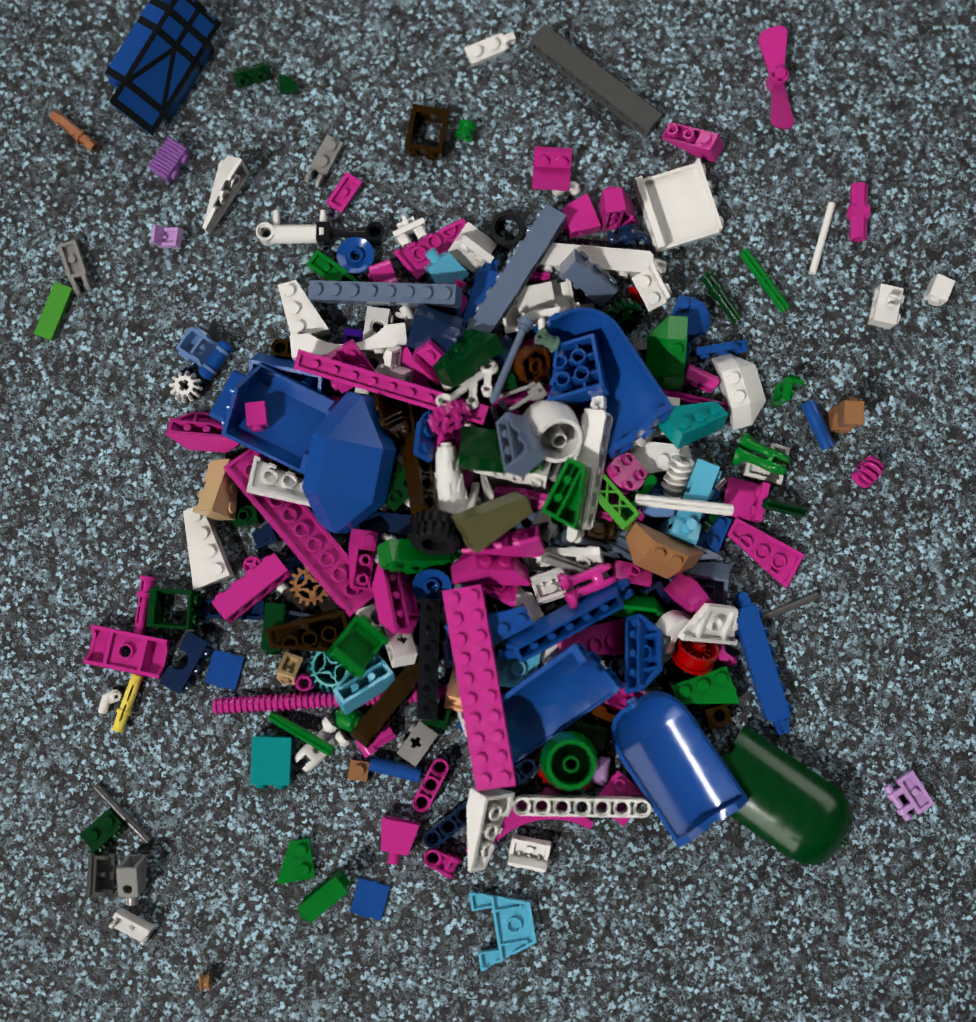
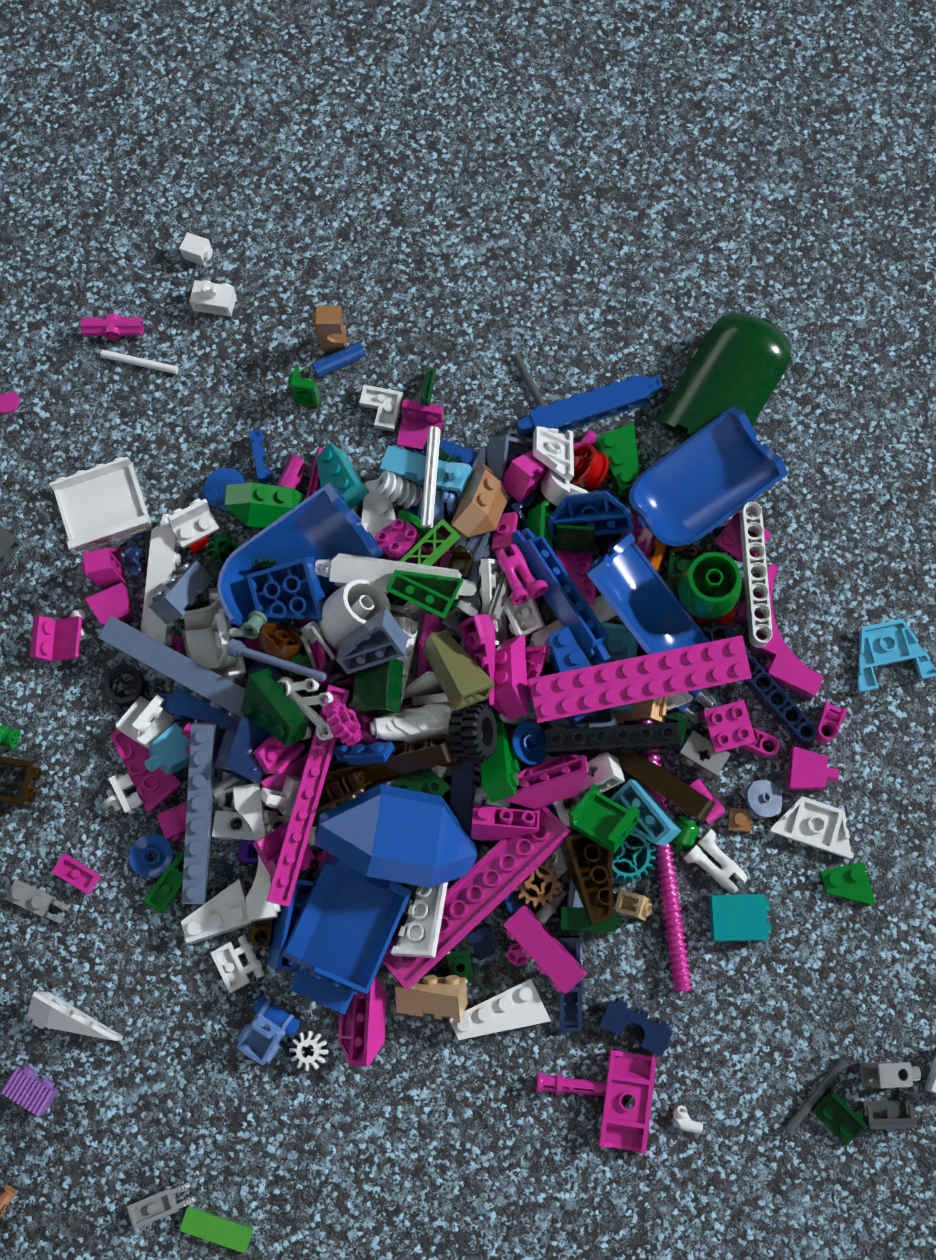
camera: 90 degrees left, 10 degrees down
(119, 724) = (714, 1105): light yellow pin -> none
(156, 608) = (573, 1068): dark green window -> none
(166, 237) = (125, 1087): lavender bracket -> none
(224, 669) = (639, 983): blue piece -> none
(256, 416) = (344, 953): dark pink brick -> none
(258, 323) = (231, 967): none -> white plate
(298, 683) = (654, 886): dark pink plate -> none
(301, 733) = (705, 884): green axle -> none
(318, 233) = (124, 902): piece -> none
(324, 896) = (883, 846): green window -> none
(348, 838) = (816, 826): none -> white wing
(370, 899) = (878, 800): blue piece -> none
(375, 793) = (763, 799): none -> sand blue piece
(395, 768) = (734, 778): blue piece -> none
(441, 766) = (728, 725): none -> dark pink bracket
(484, 820) = (778, 674): white wedge -> none
(529, 853) = (810, 630): white bracket -> none
(604, 350) = (263, 564): none -> dark green plant
(623, 638) = (575, 538): none -> dark green piece
(661, 524) = (450, 499): none -> medium blue arm
(694, 141) = (28, 492): dark pink slope -> none
(708, 714) = (648, 455): dark brown brick -> none
(718, 287) = (194, 463): dark green pin -> none
(740, 389) = (301, 436): white wedge -> none
(764, 280) = (184, 416): green axle -> none
(765, 463) = (373, 431): green piece -> none
(771, 554) = (474, 403): dark pink wing -> none
(867, 471) = (386, 309): dark pink gear -> none
(913, 790) = (709, 260): lavender plate -> none

